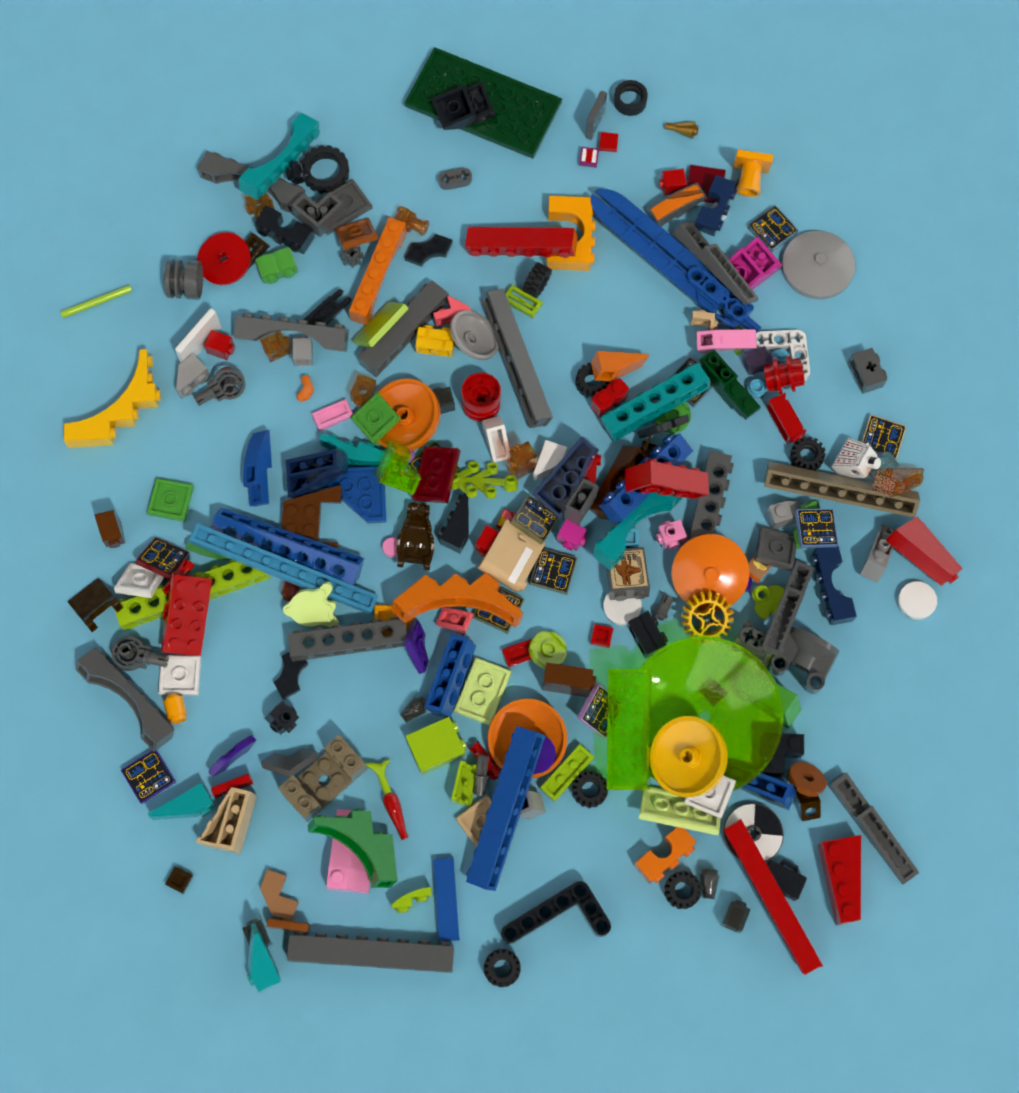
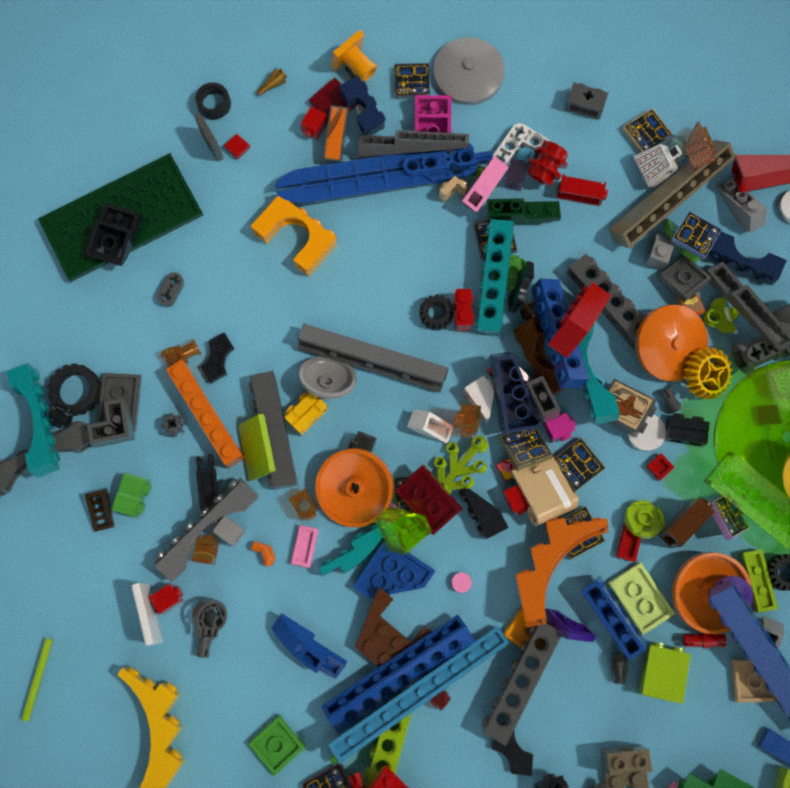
camera: 50 degrees left, 5 degrees up
(183, 279) = (78, 591): dark grey wheel -> none
(190, 374) = (174, 645): light grey slope -> none
(229, 270) = (101, 543): red piece -> none
(254, 210) = (67, 476): clear orange brick -> none
(296, 238) = (119, 460): black arch -> none
(312, 607) = (470, 691): yellowish green tile -> none
(314, 471) = (350, 603): dark blue wedge -> none
(356, 233) = (157, 407): dark orange tile -> none
(375, 418) = (338, 512): bright green tile -> none
(390, 799) = (684, 745): red piece -> none
(415, 539) = (470, 556): dark brown animal -> none
(445, 316) = (291, 375): coral slope -> none
(454, 620) = (567, 577): coral slope -> none
(464, 784) = (712, 673): lime hinge -> none
(481, 397) = (378, 406): red wheel -> none
(481, 775) = (717, 654): dark grey axle -> none
(521, 241) = (274, 278): red brick -> none
(535, 309) = (322, 309): lime tile -> none
(537, 280) = (317, 291): black tyre -> none
(589, 157) = (238, 171): tile -> none
(613, 365) = (440, 287): orange slope -> none
(671, 534) = (616, 349): bright pink brick -> none
(756, 388) = (537, 193): medium azure plate -> none
(817, 449) = (630, 190): black tyre -> none

